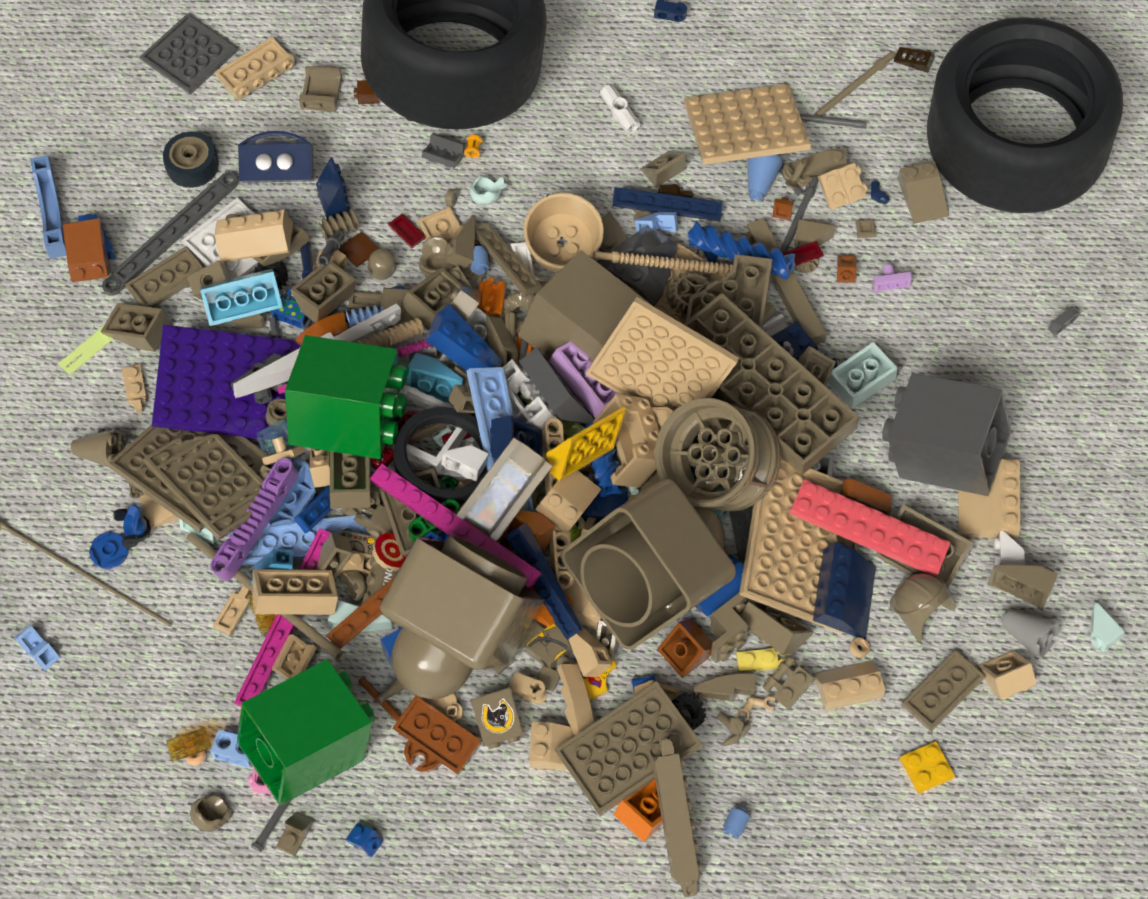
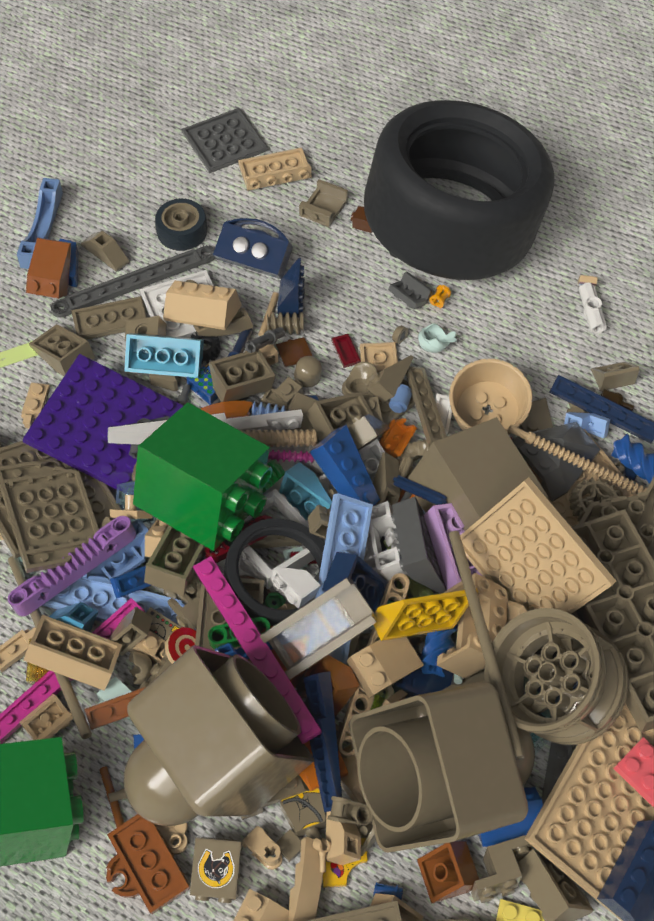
camera: 20 degrees right, 5 degrees down
(127, 211) = (106, 250): none -> dark tan slope
(317, 218) = (273, 301): none -> tan bar
(372, 289) = (287, 390): none -> dark tan bracket
(536, 339) = (419, 490): none -> dark blue axle
(578, 666) = (323, 847): none -> tan hand
(590, 629) = (346, 811): none -> dark tan piece
(604, 82) = (587, 279): none -> tan tile
(644, 440) = (484, 639): none -> dark tan piece

